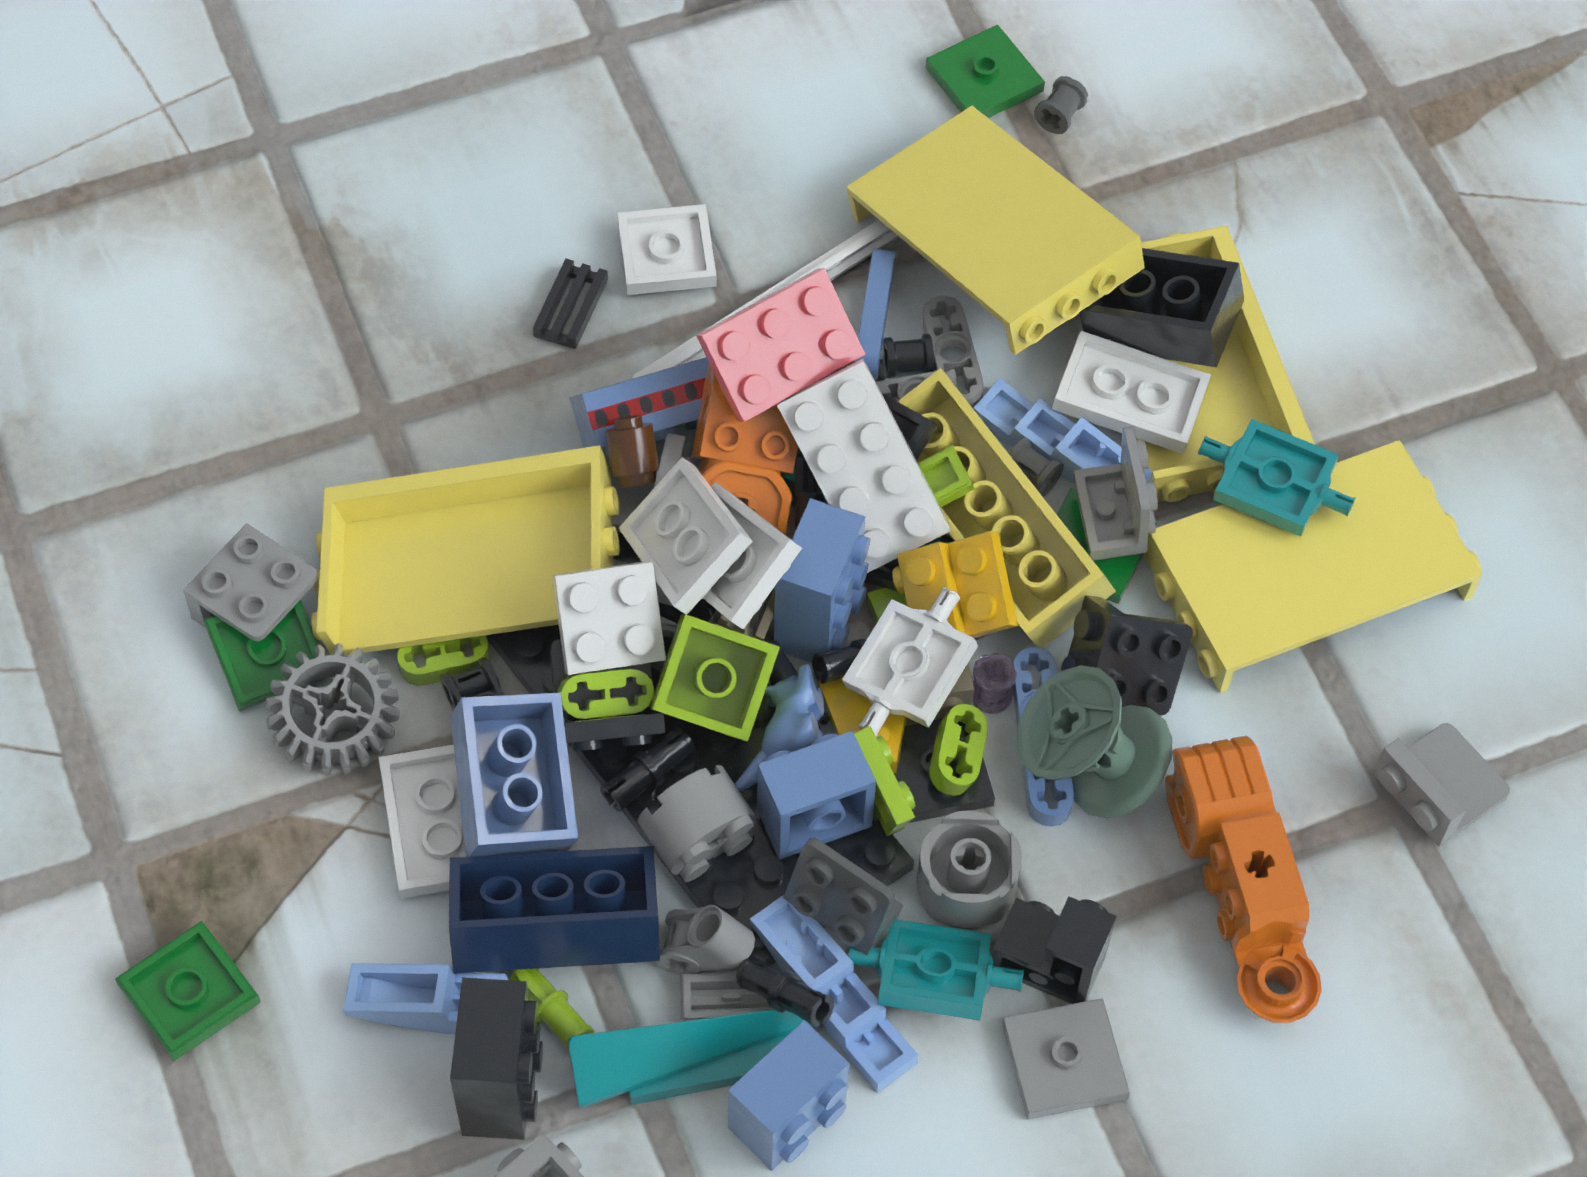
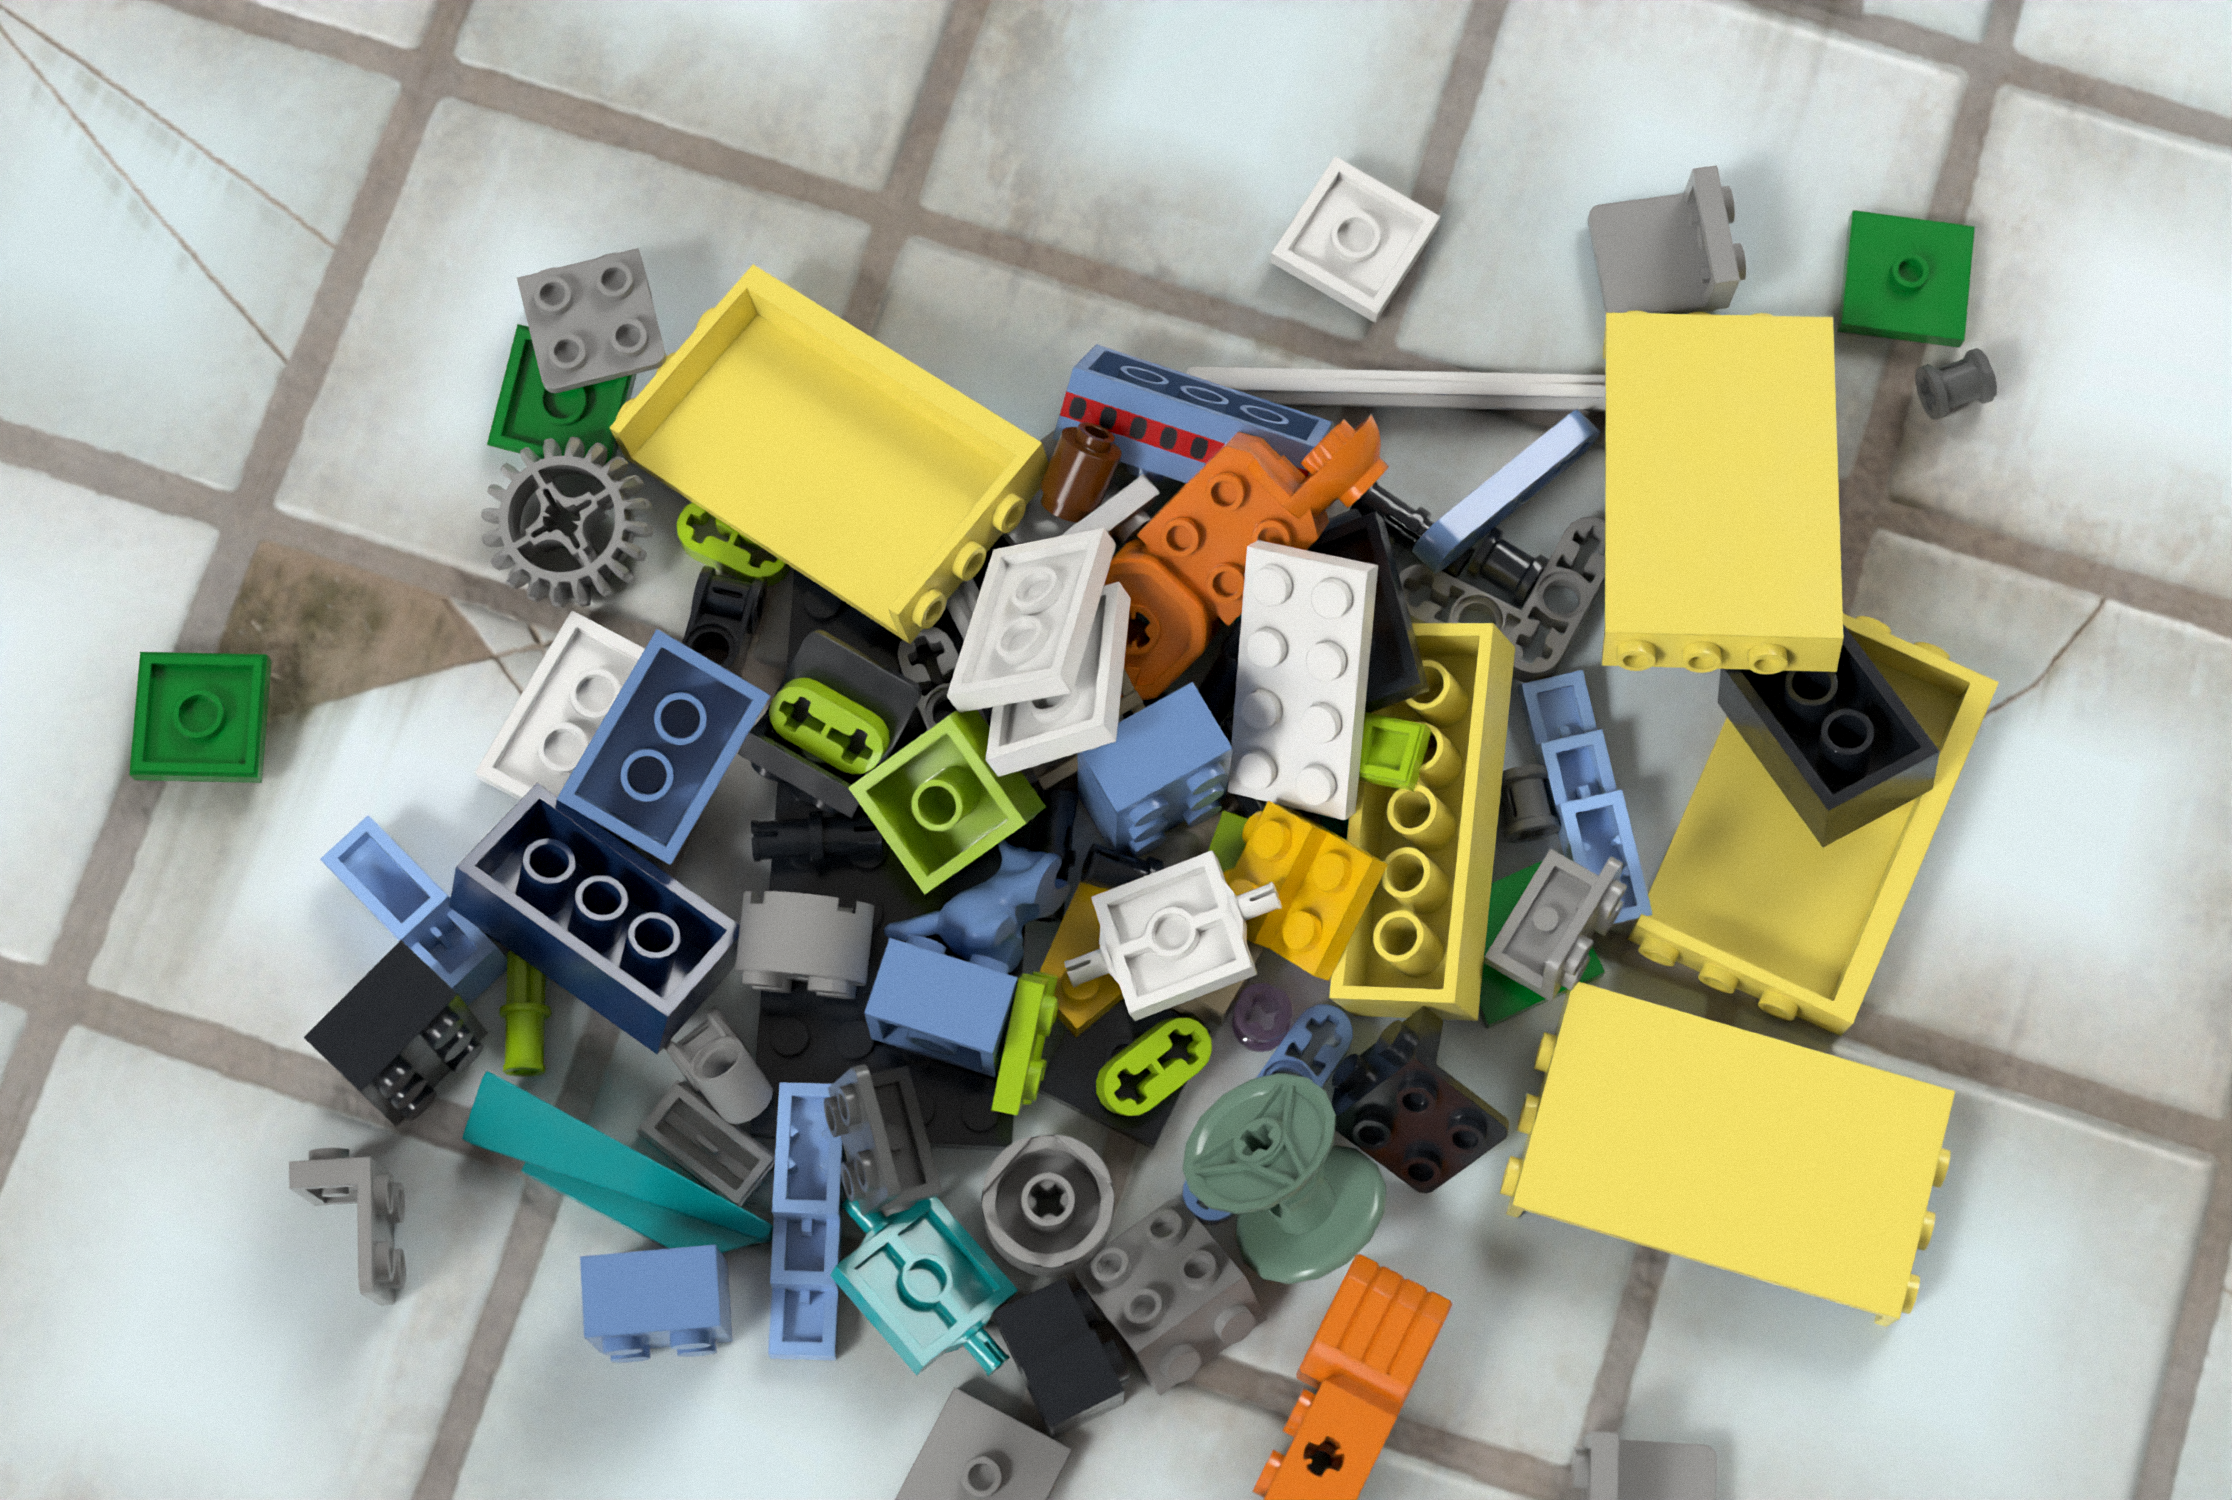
camera: 40 degrees right, 15 degrees up
(581, 275) = (1243, 200): black tile -> none
(609, 617) = (884, 650): white plate -> none
(780, 344) = (1300, 482): plate -> none
(785, 991) = (744, 1189): black pin -> none
(848, 136) = (1669, 249): none -> light grey bracket
(1082, 860) = (1171, 1294): none -> light grey bracket
(1131, 388) = (1709, 800): white plate -> none
(1276, 477) = (1763, 1031): teal plate -> none

